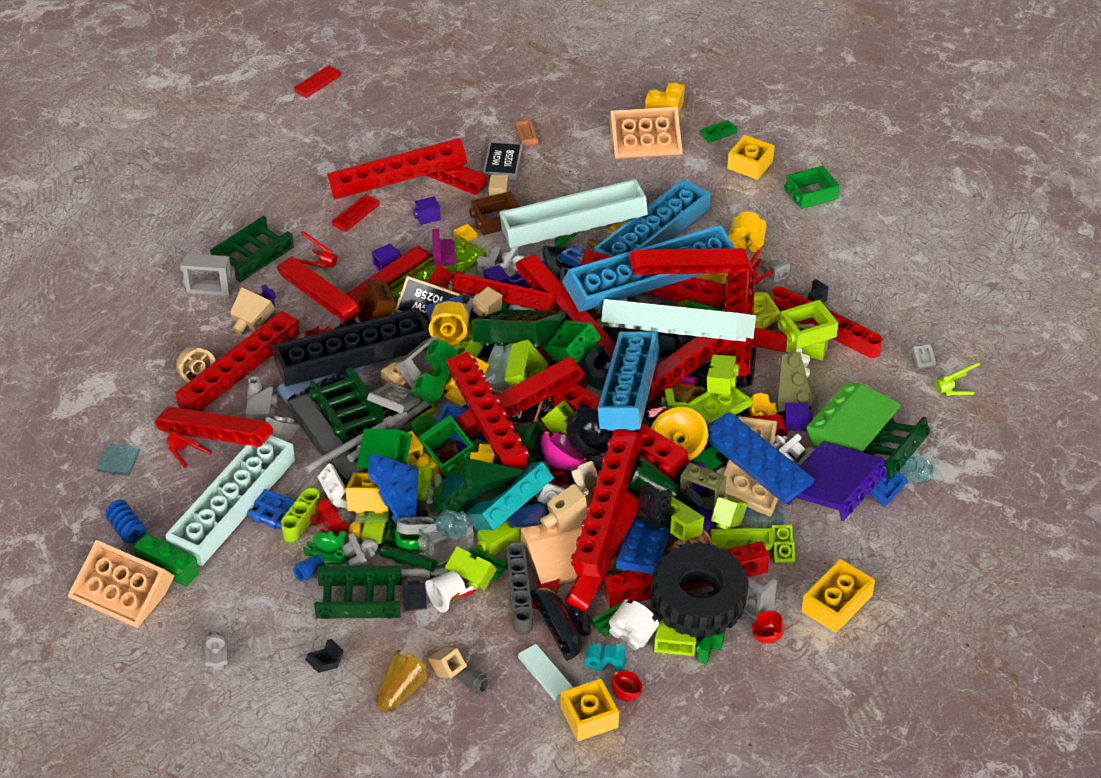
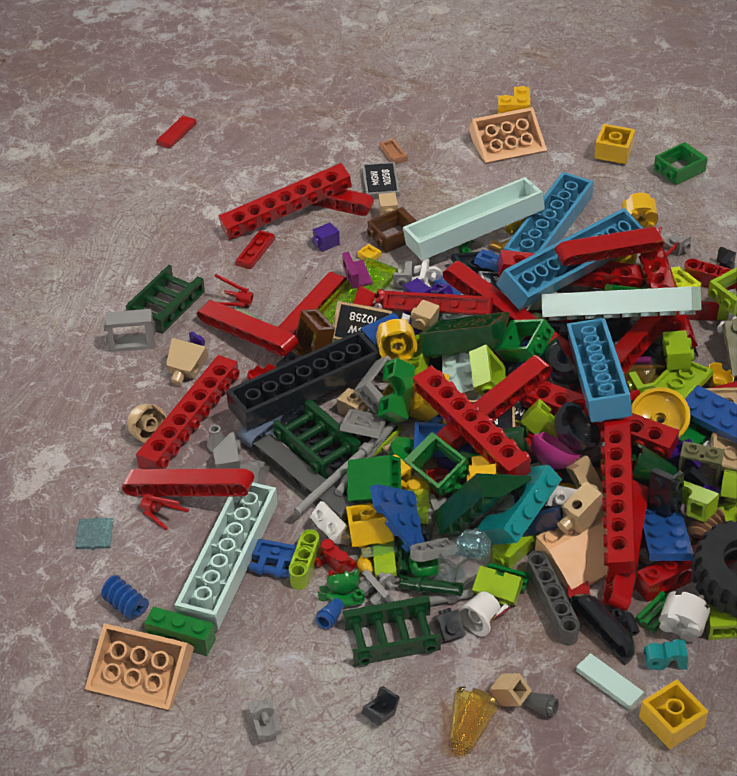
camera: 10 degrees left, 0 degrees up
(384, 256) = (301, 287): dark purple brick -> none
(626, 686) = (699, 681): red hair -> none
(718, 131) = (573, 126): green tile -> none

